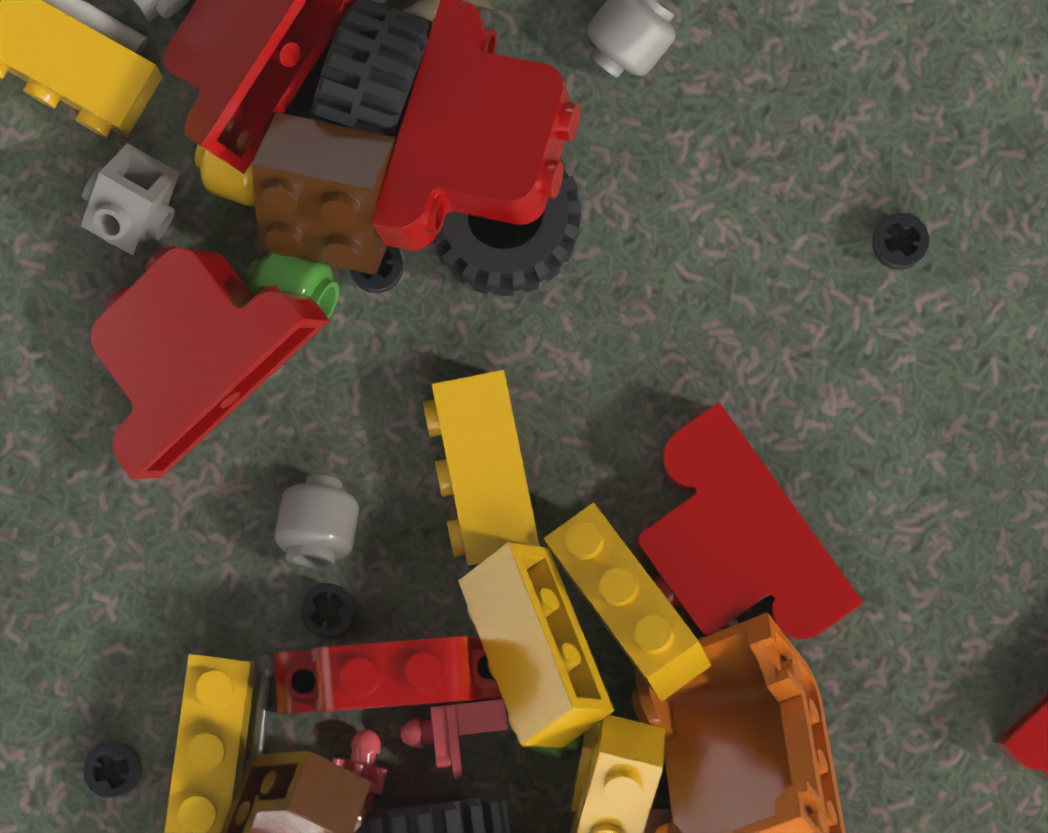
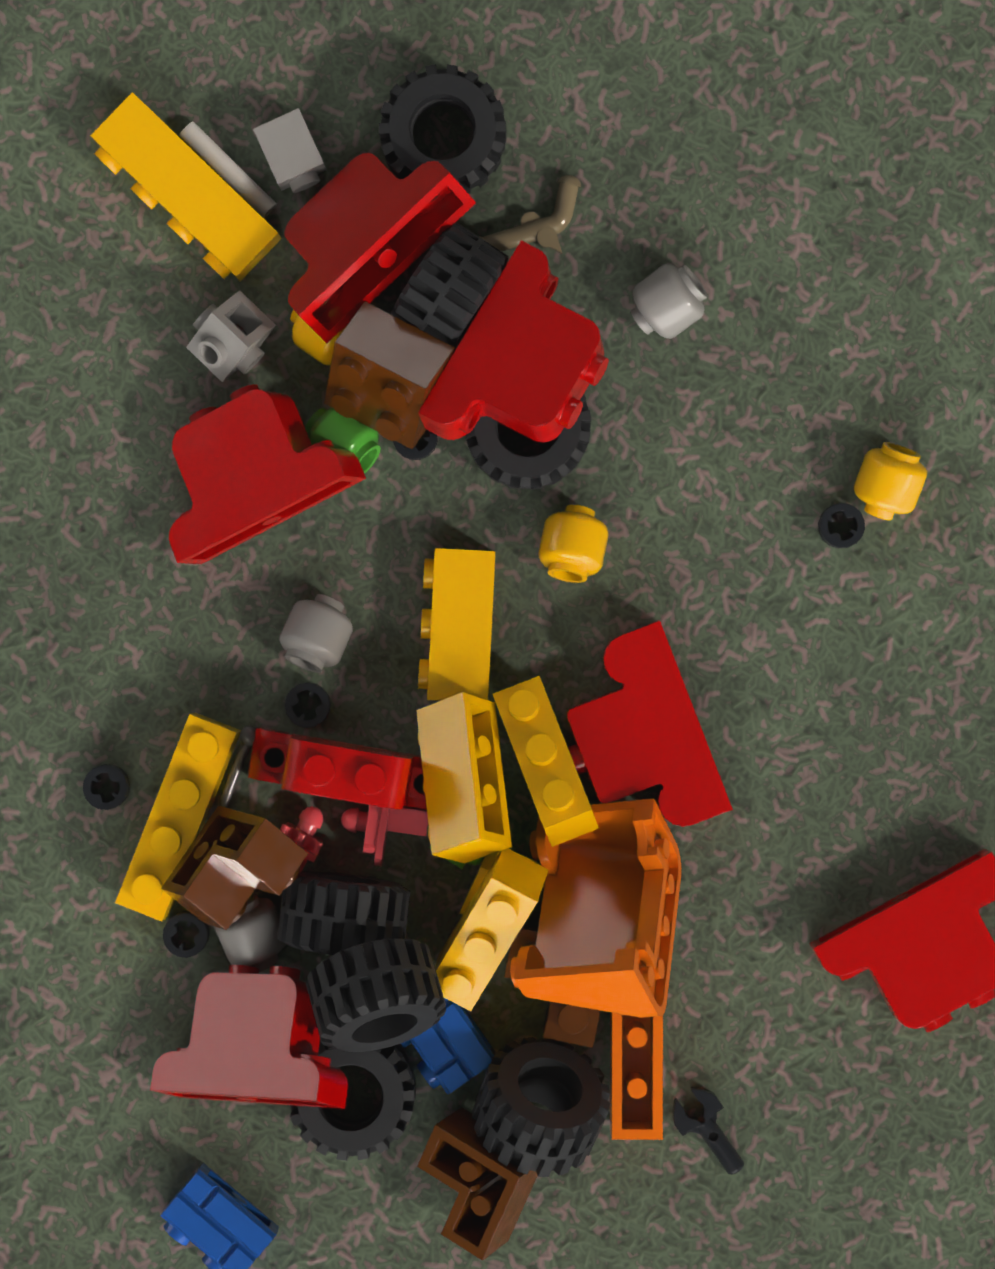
camera: 15 degrees right, 5 degrees up
(593, 340) = (573, 544): none -> yellow head
(943, 173) = (890, 480): none -> yellow head

